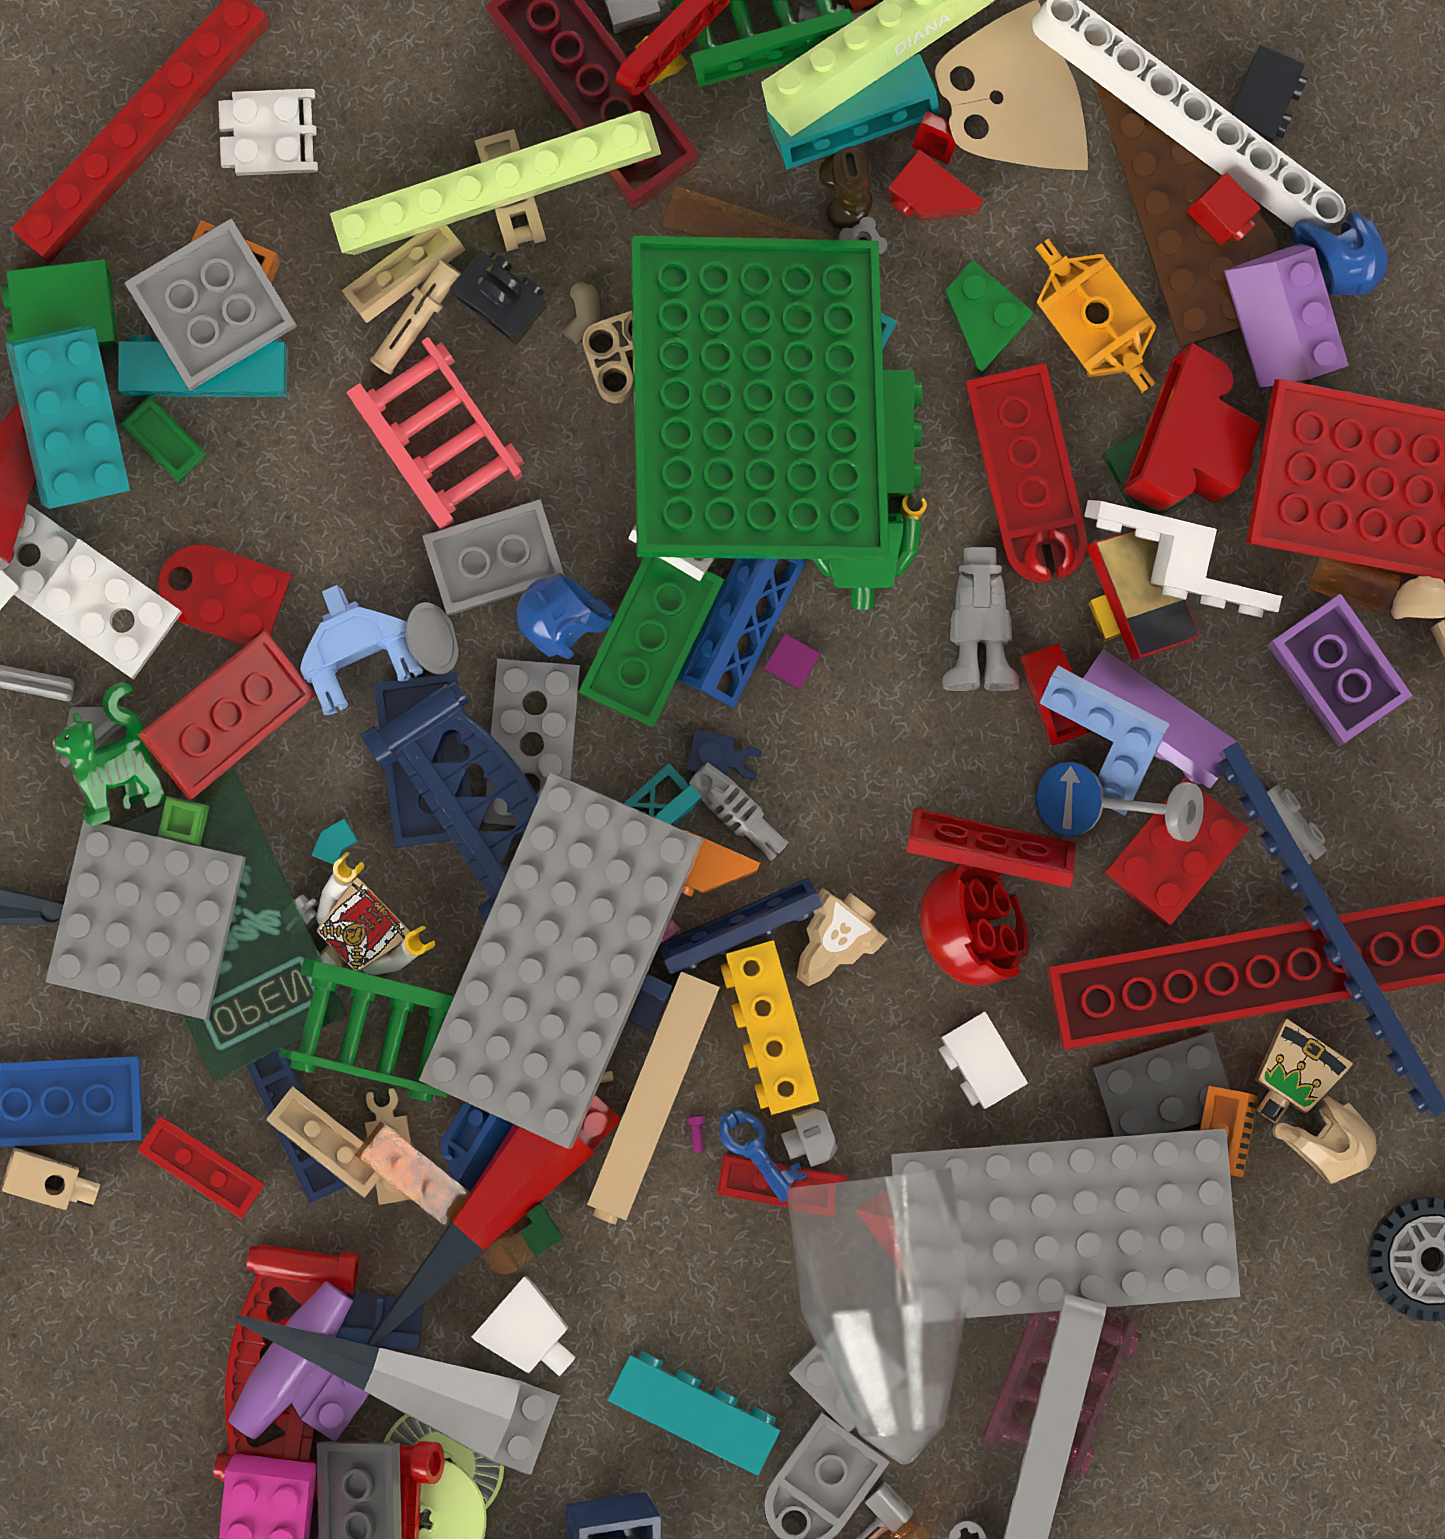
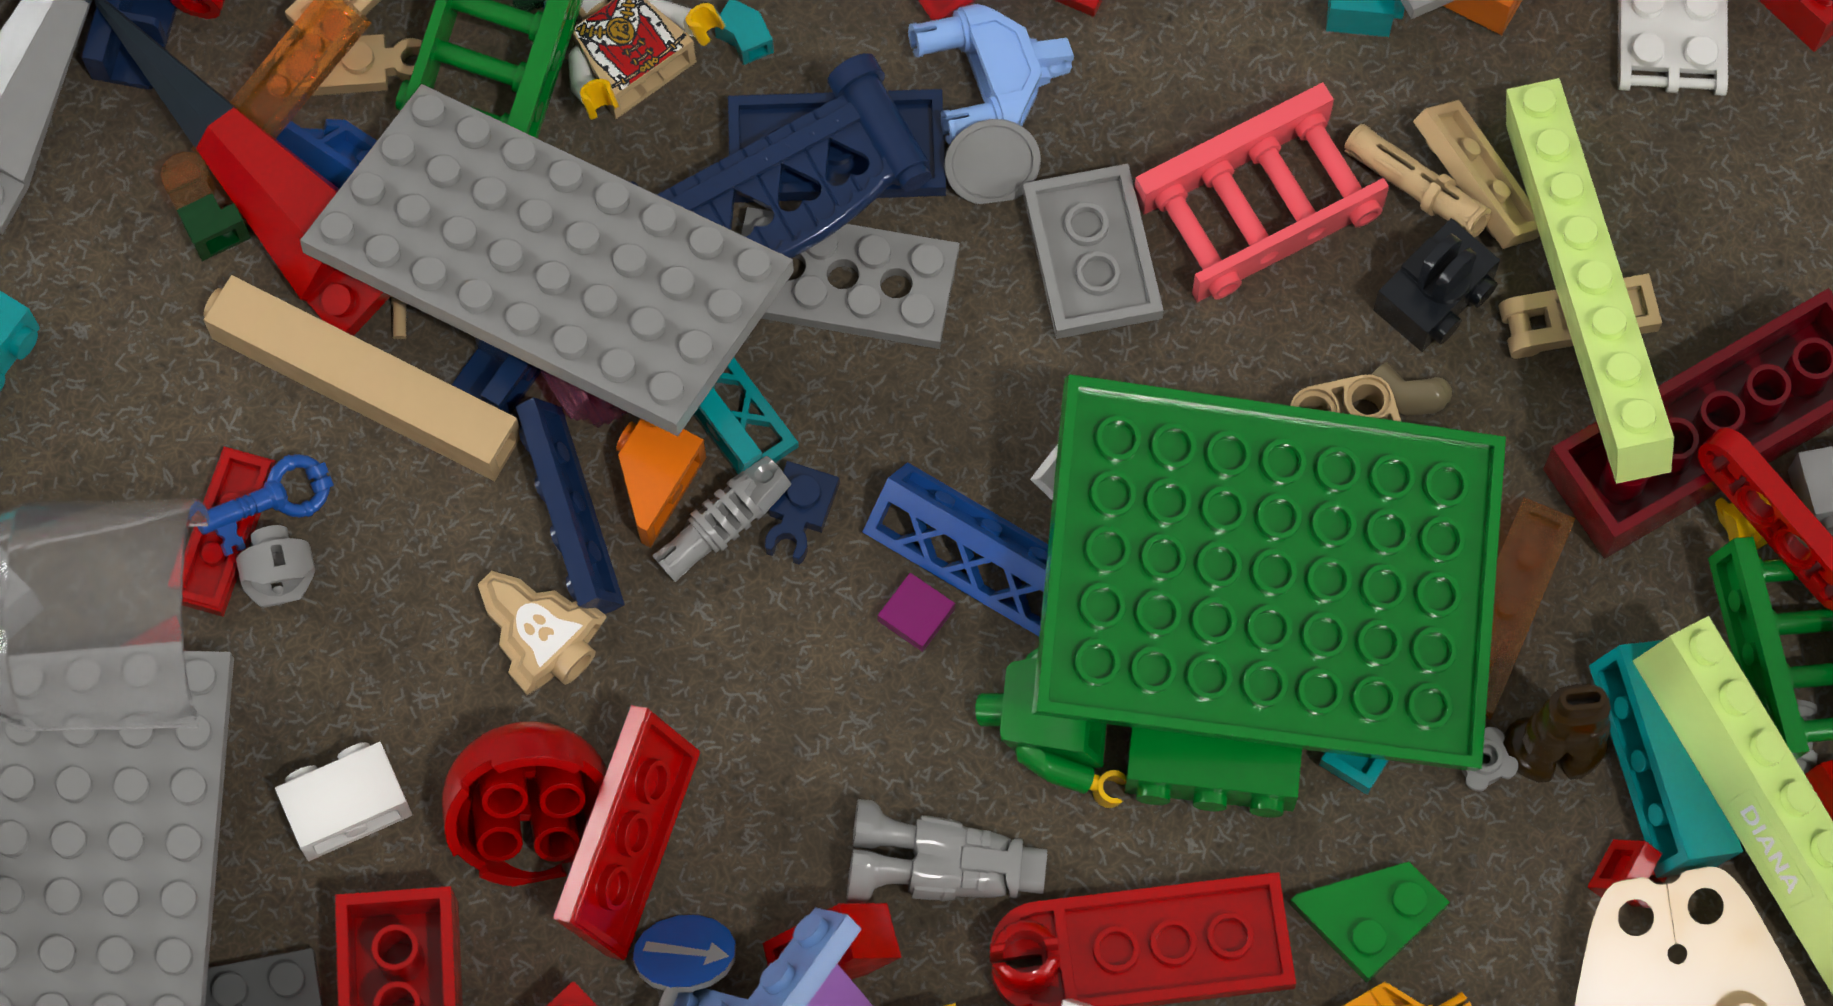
camera: 95 degrees right, 15 degrees down
(526, 1330) = (88, 196): white torso -> none
(558, 613) = (994, 303): blue helmet -> none
(650, 640) = (959, 431): green plate -> none
(696, 1129) = (322, 432): magenta piece -> none
(771, 1027) = (428, 532): yellow brick -> none
(931, 192) = (1548, 851): red slope -> none

